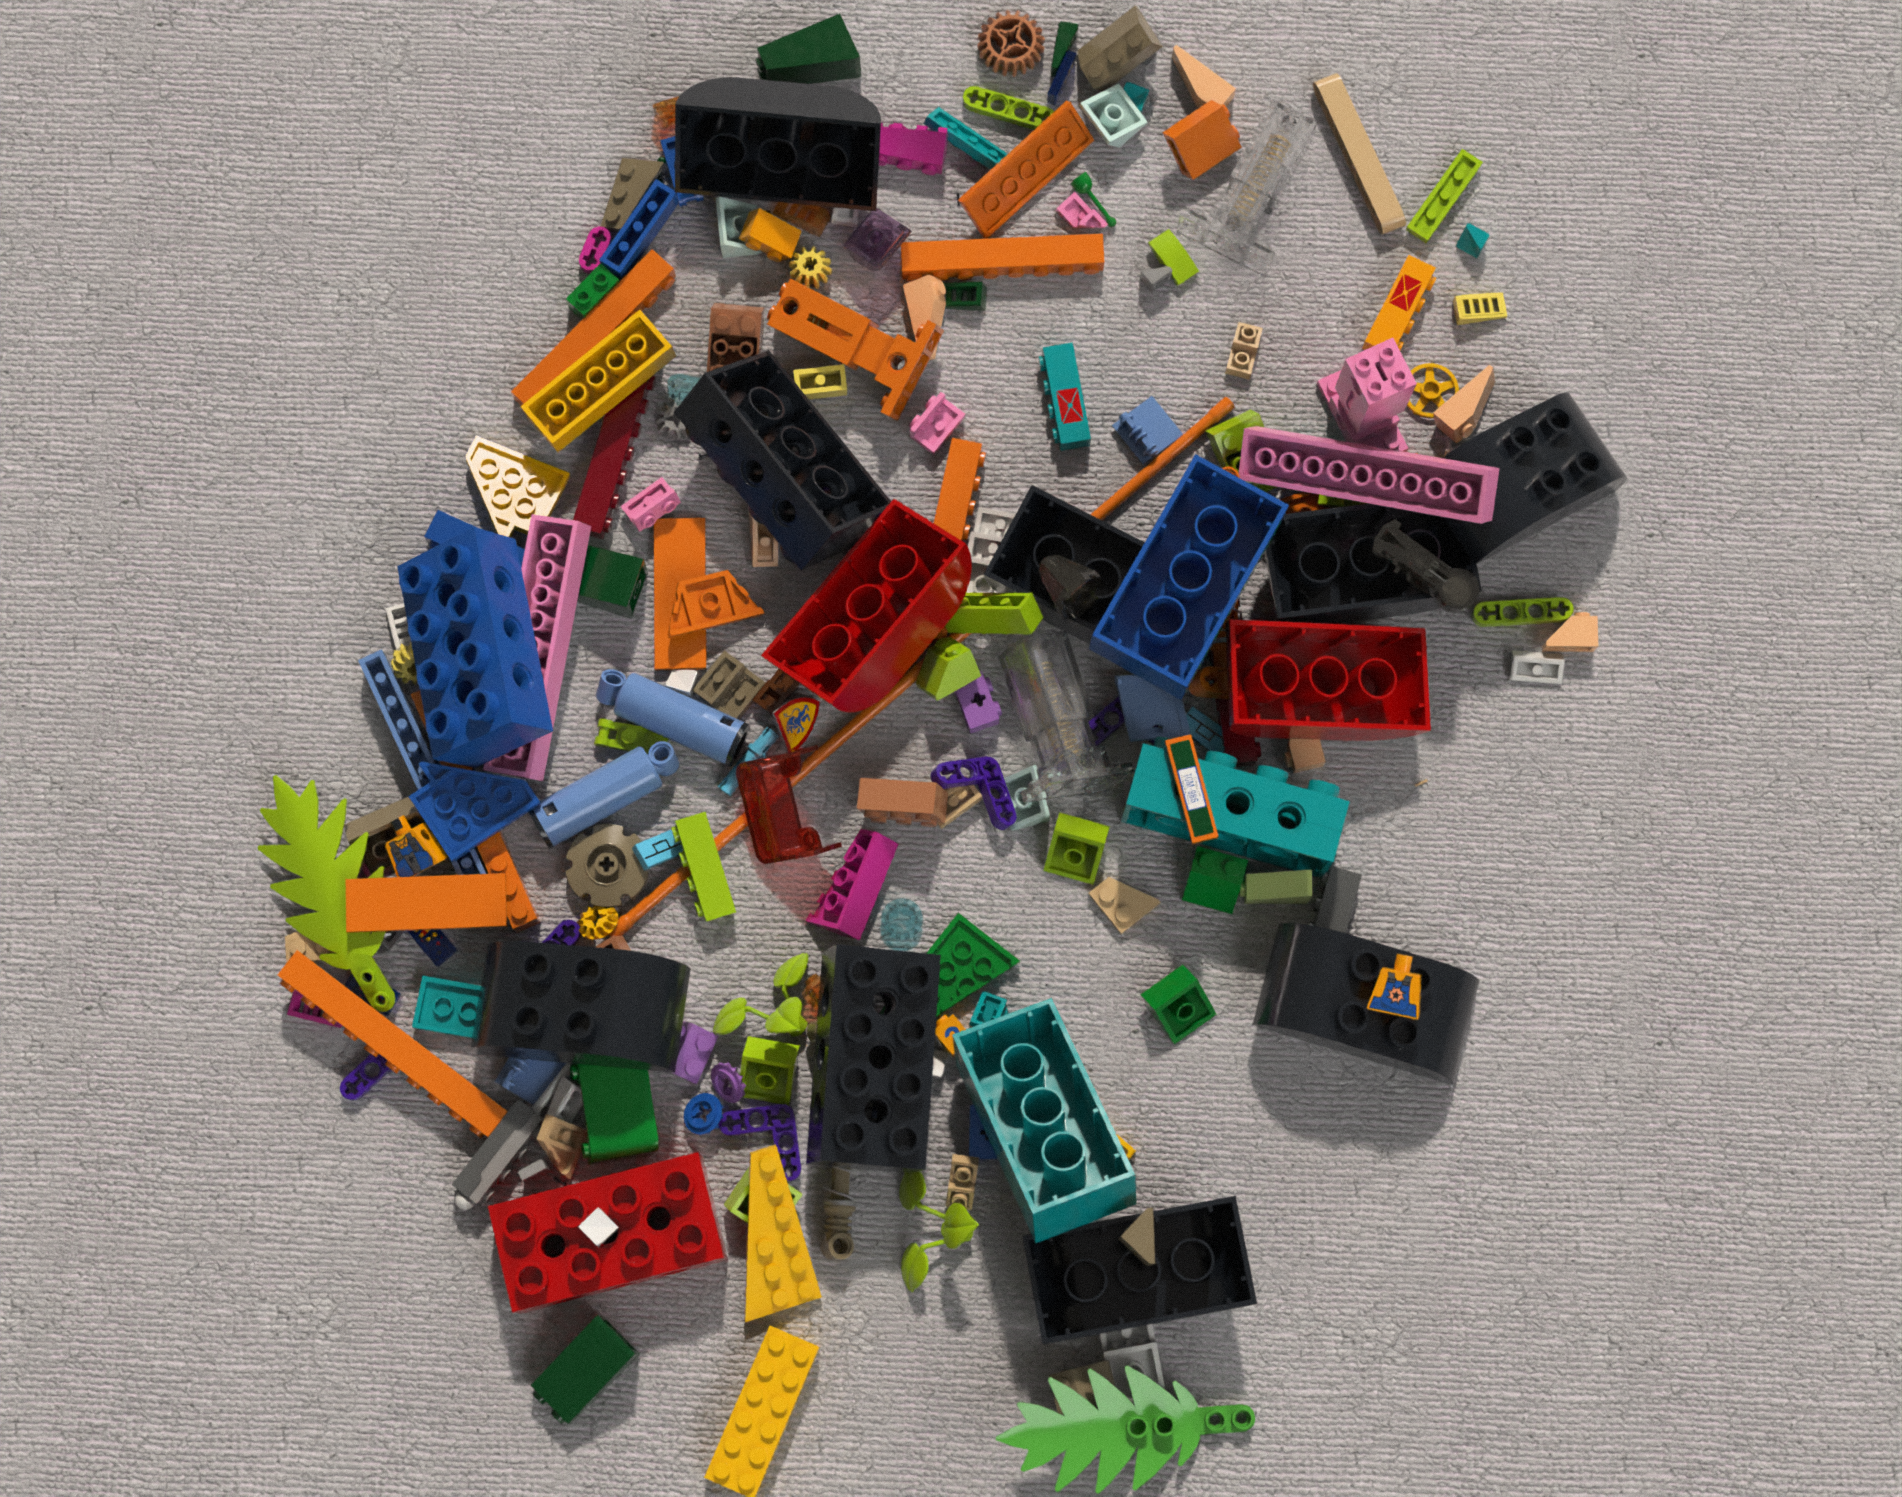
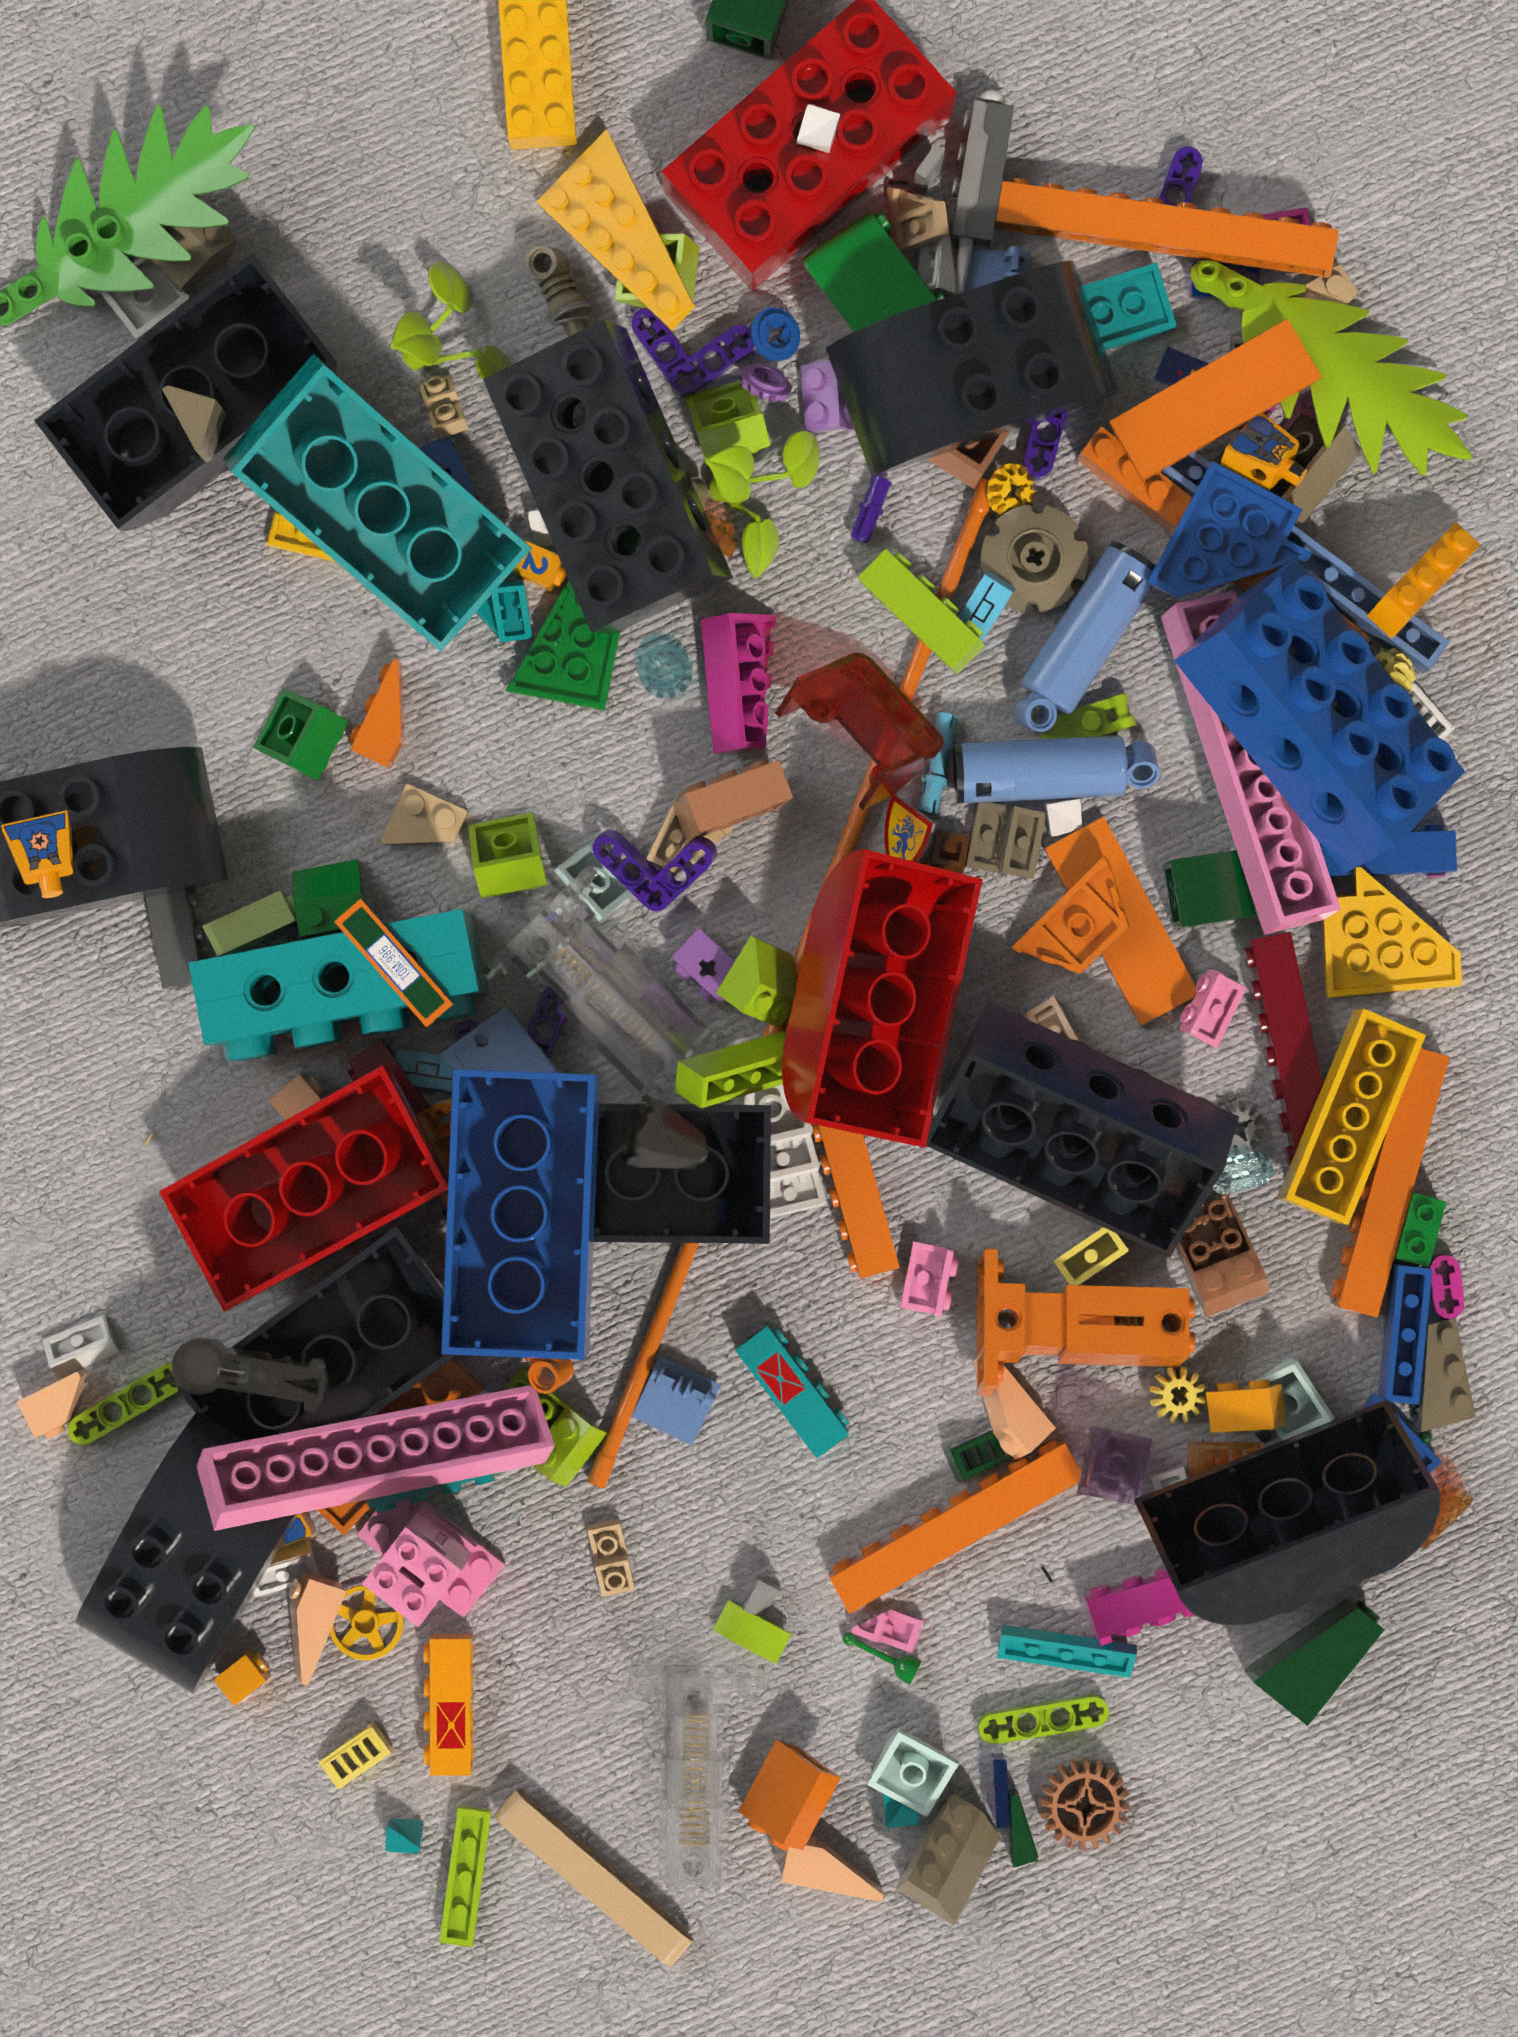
camera: 150 degrees right, 10 degrees up
(352, 709) = (1423, 580): none -> light orange brick
(705, 956) = (870, 509): none -> dark purple axle
(1026, 169) = (982, 1649): orange tile -> none
(1120, 976) = (383, 727): none -> orange slope
(1530, 393) = (243, 1676): none -> light orange brick

